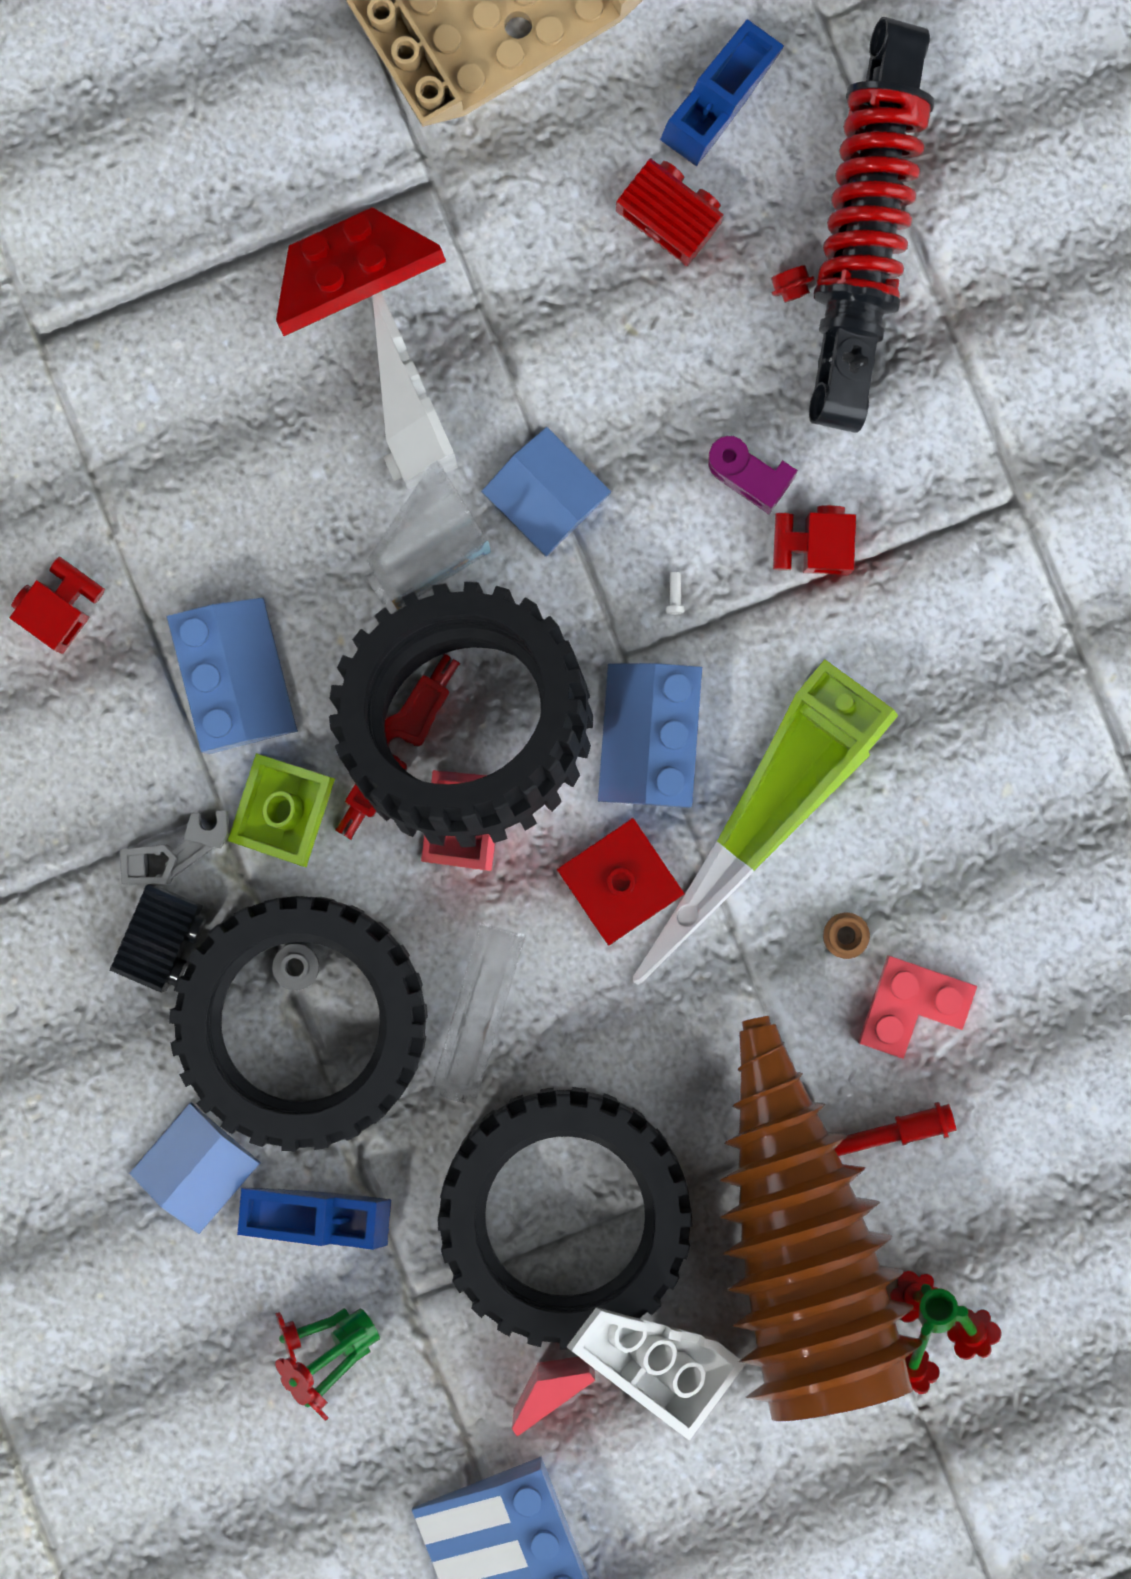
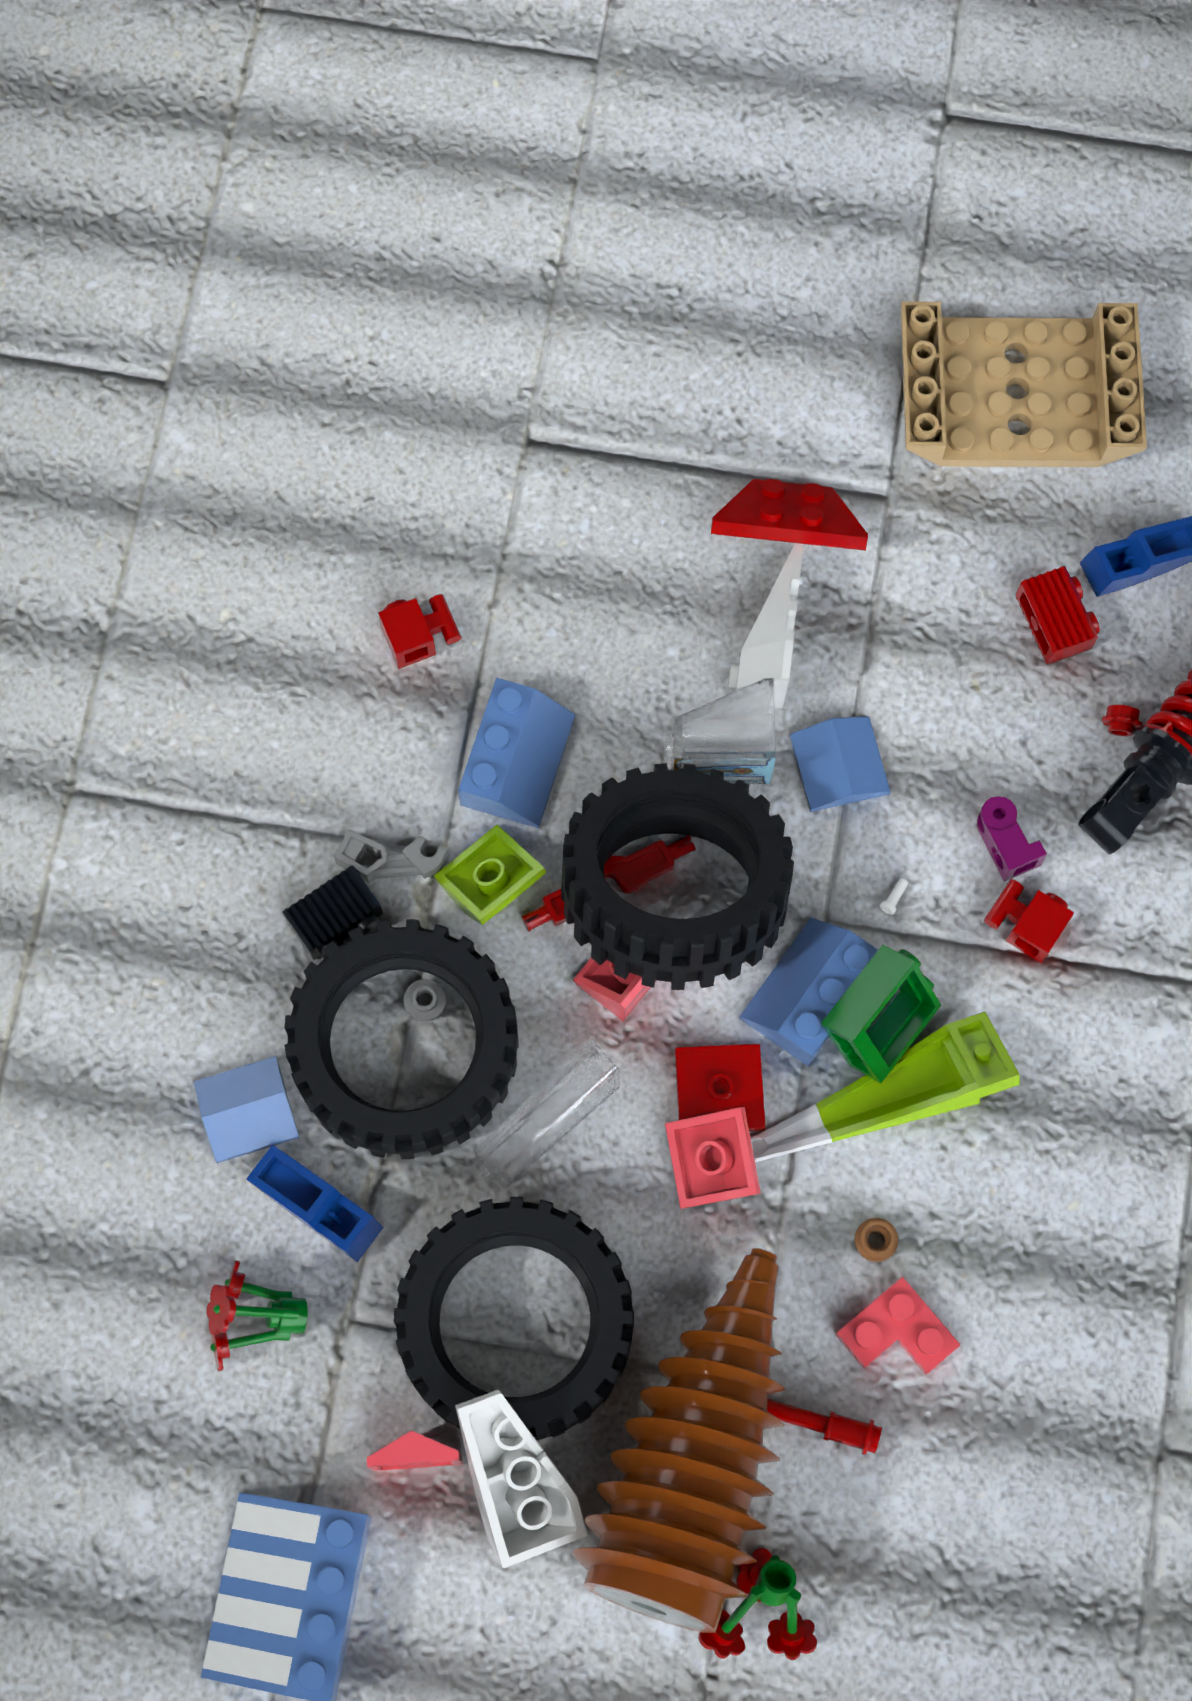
camera: 30 degrees right, 15 degrees down
(654, 956) = (712, 1158): none -> coral slope
(732, 723) = (897, 1027): none -> green window

